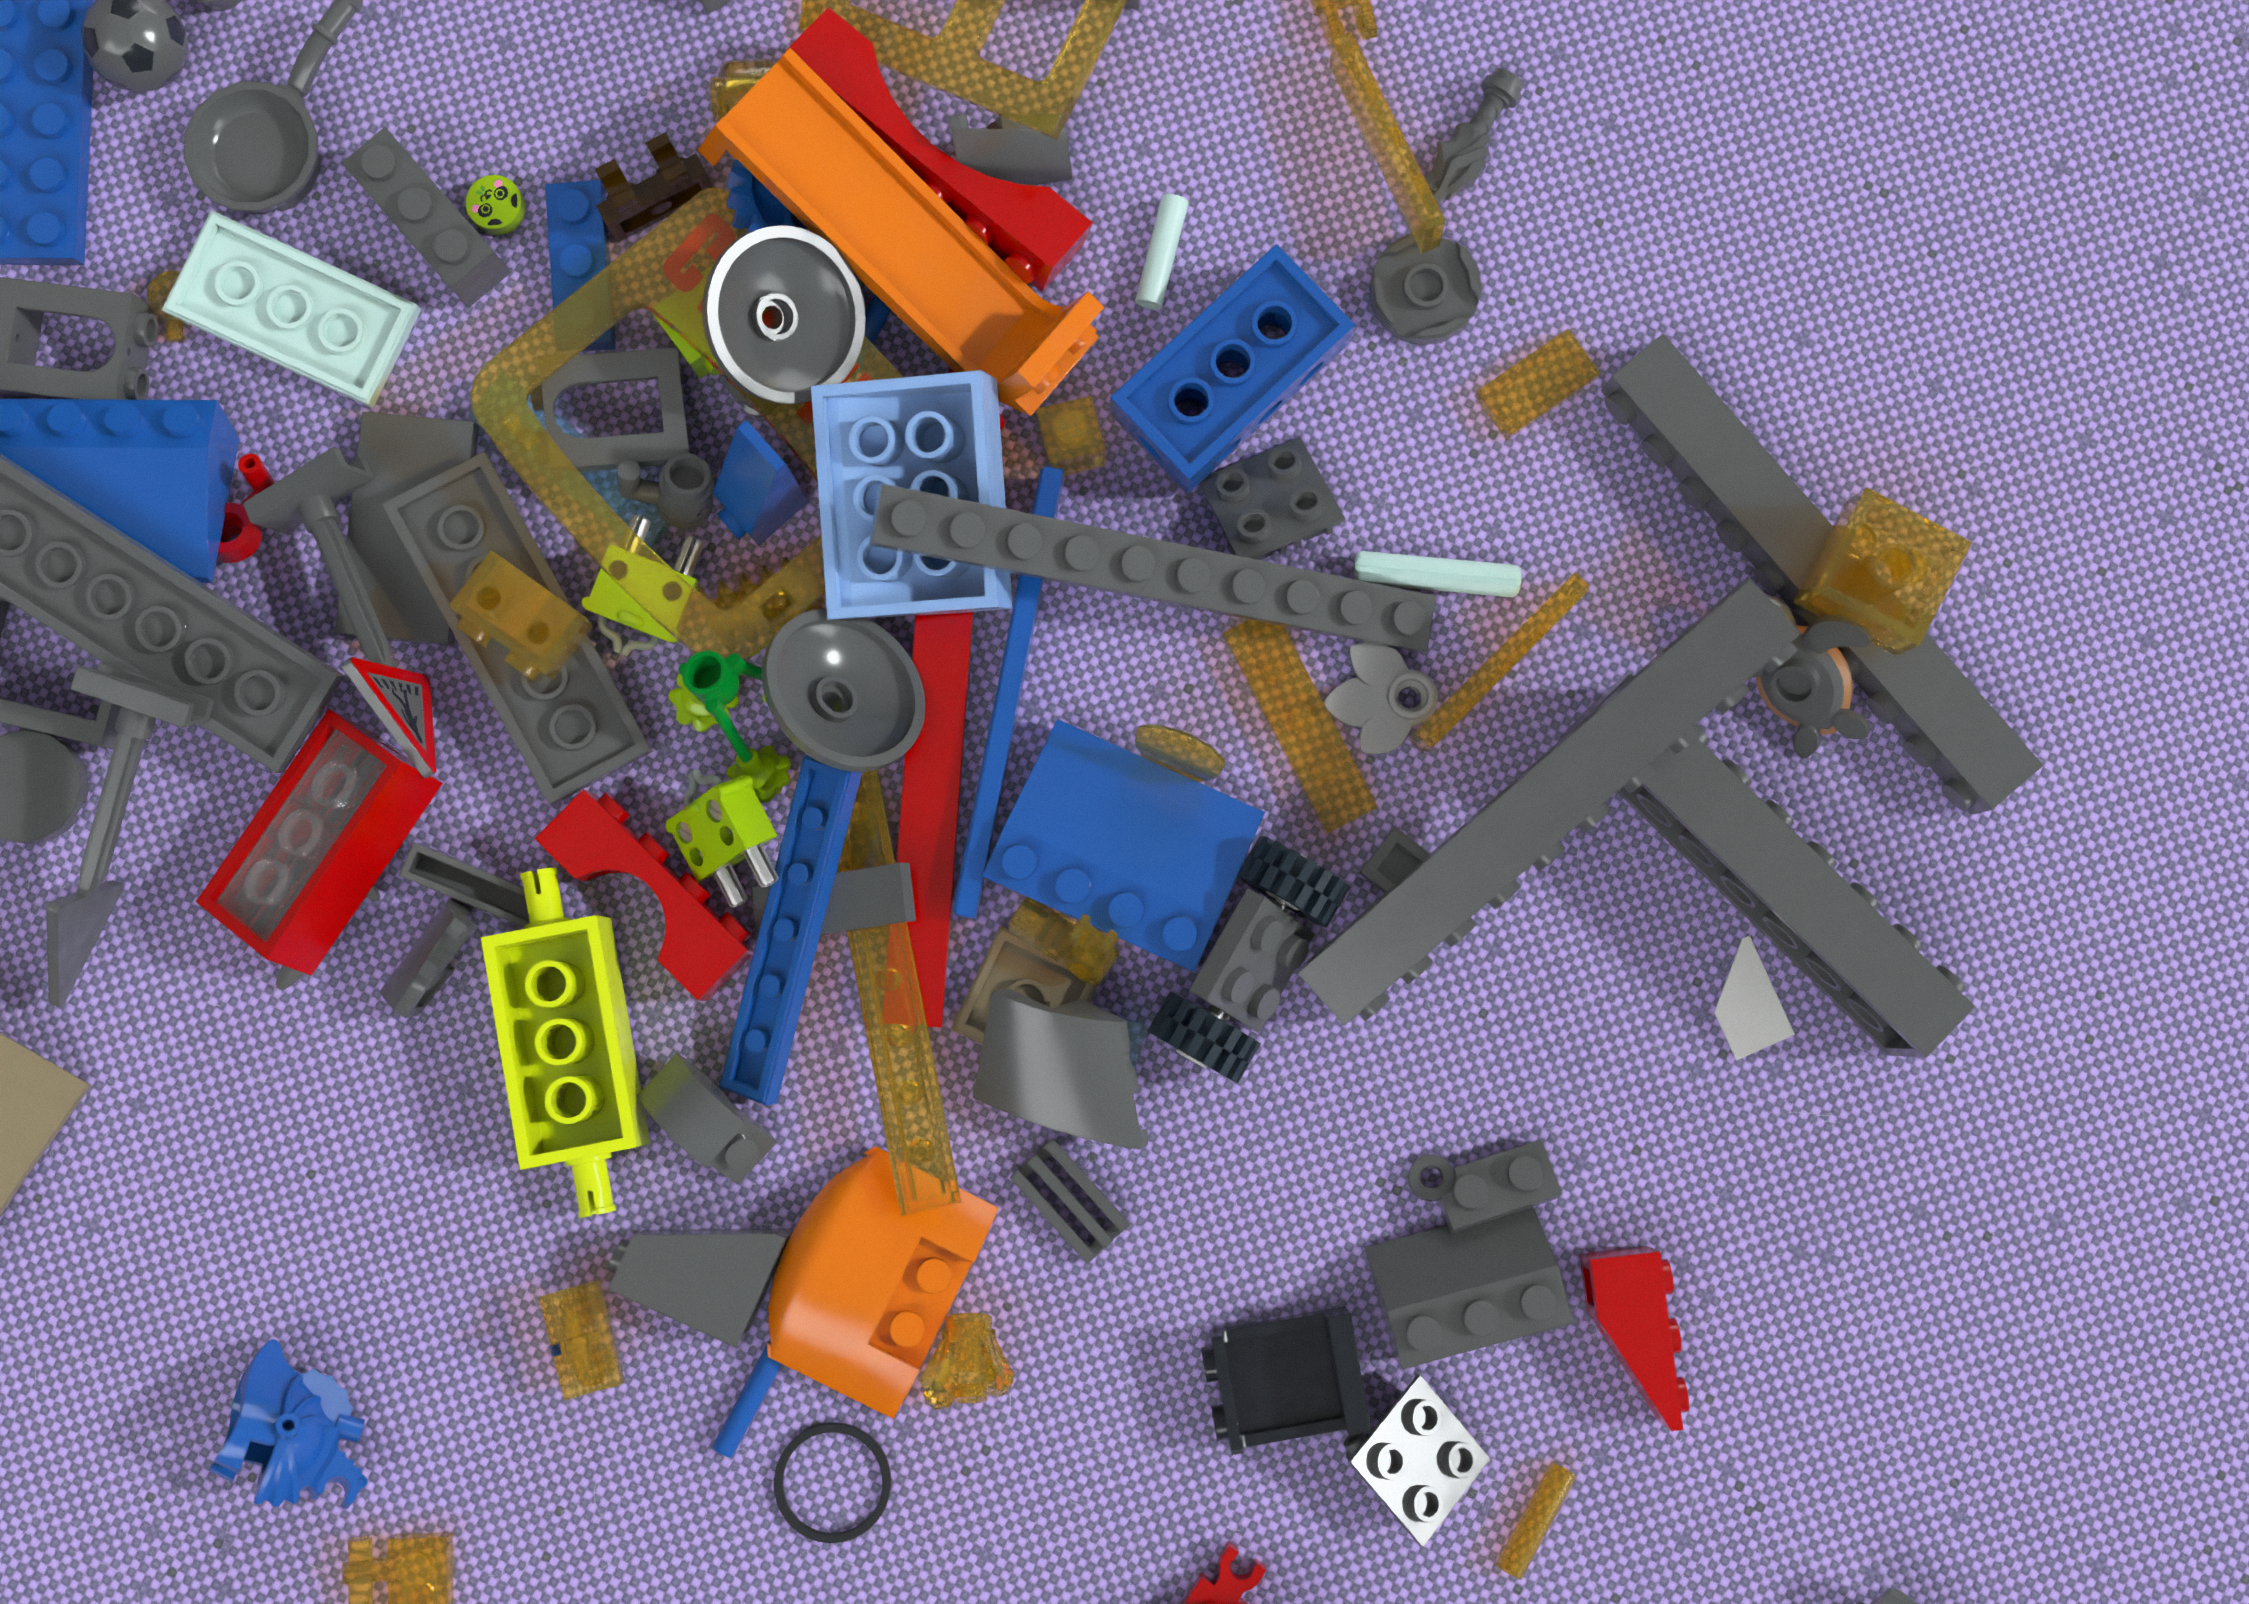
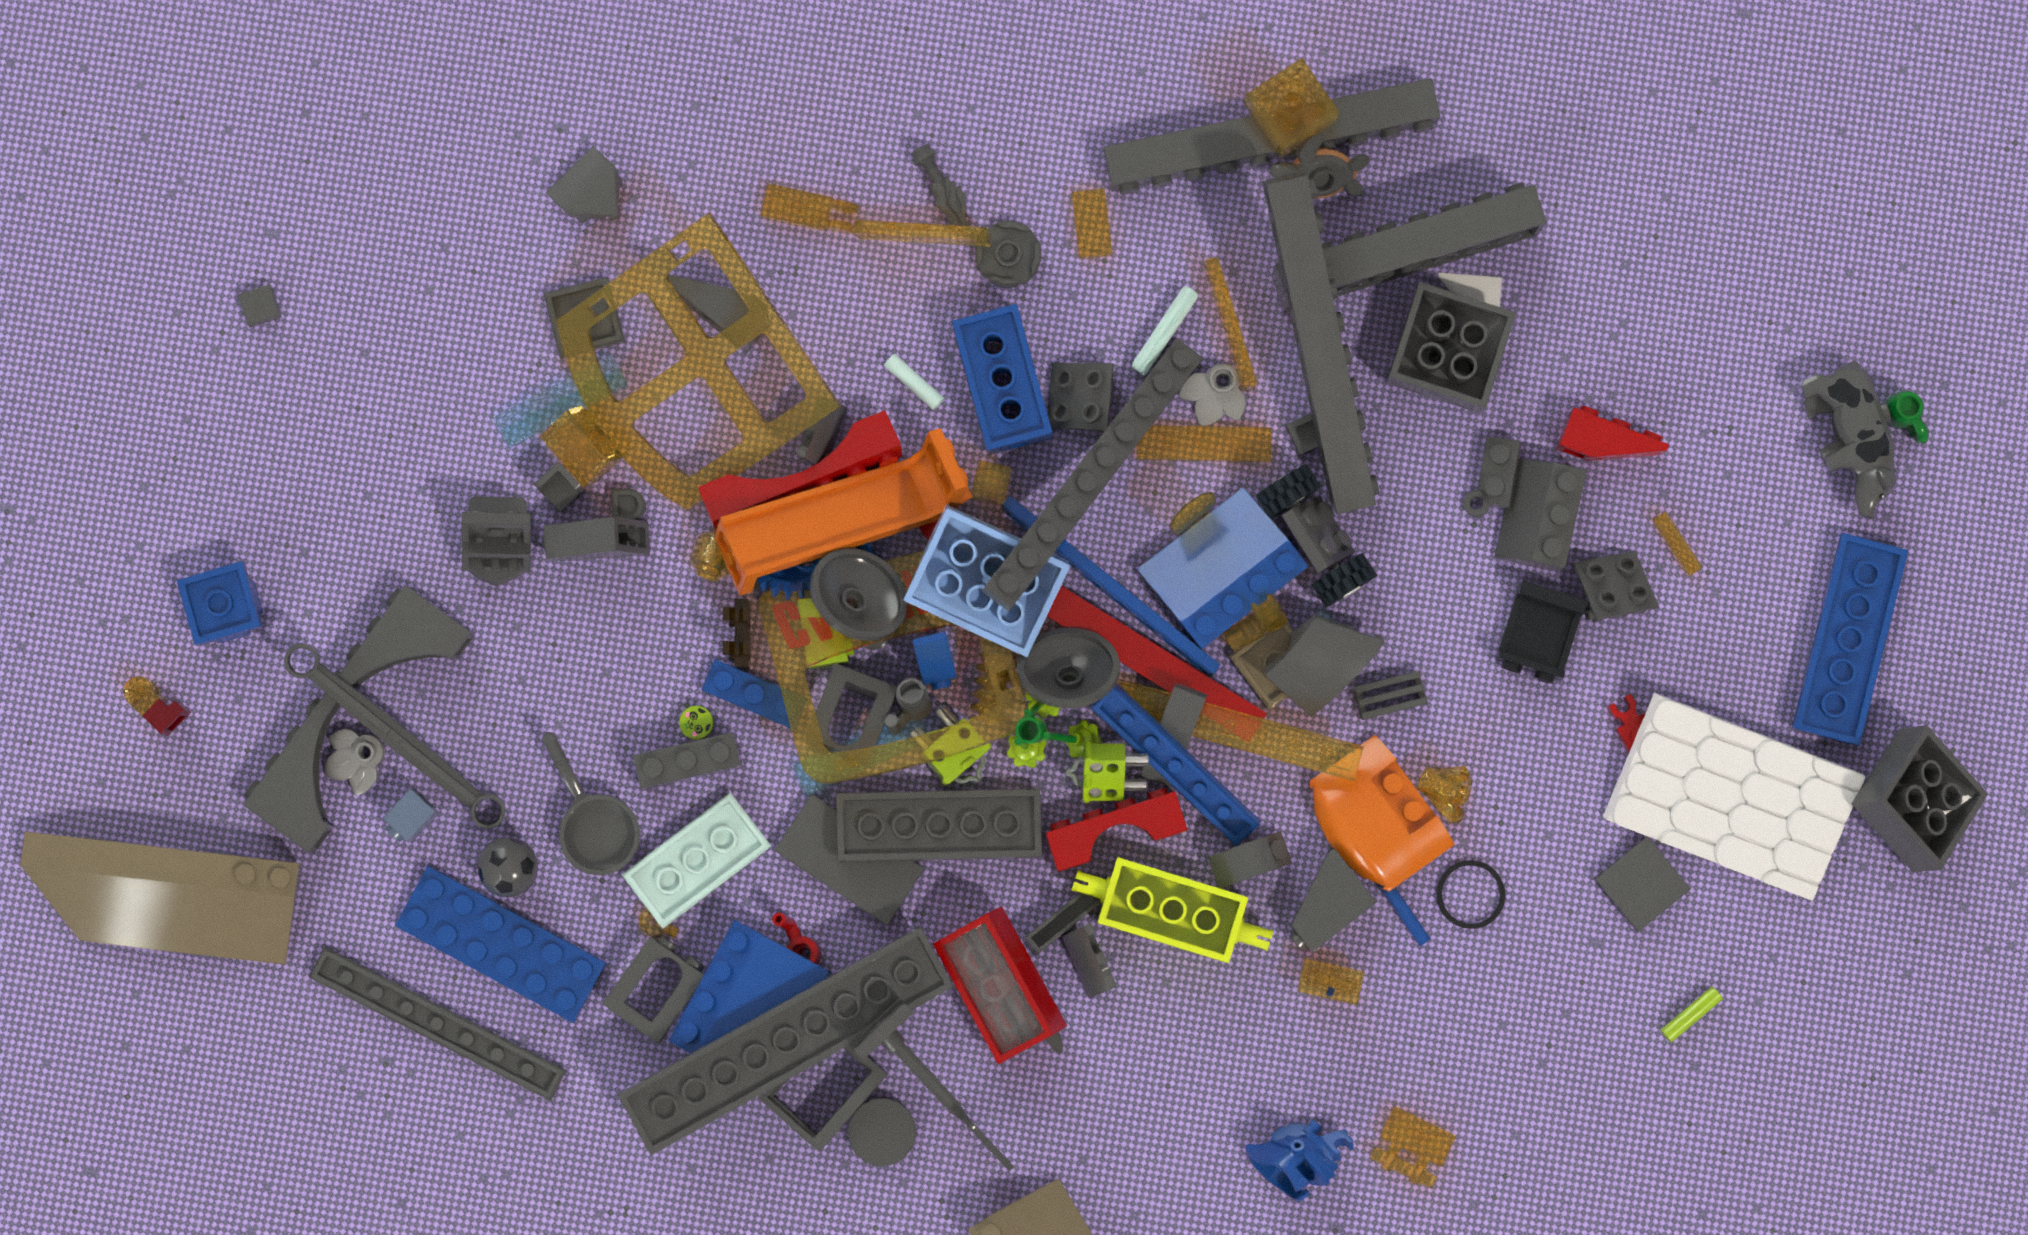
camera: 60 degrees left, 0 degrees up
(394, 694) = (810, 898): dark grey piece -> none
(520, 617) = (939, 817): clear yellow brick -> none
(1648, 1013) = (1450, 347): none -> dark grey slope

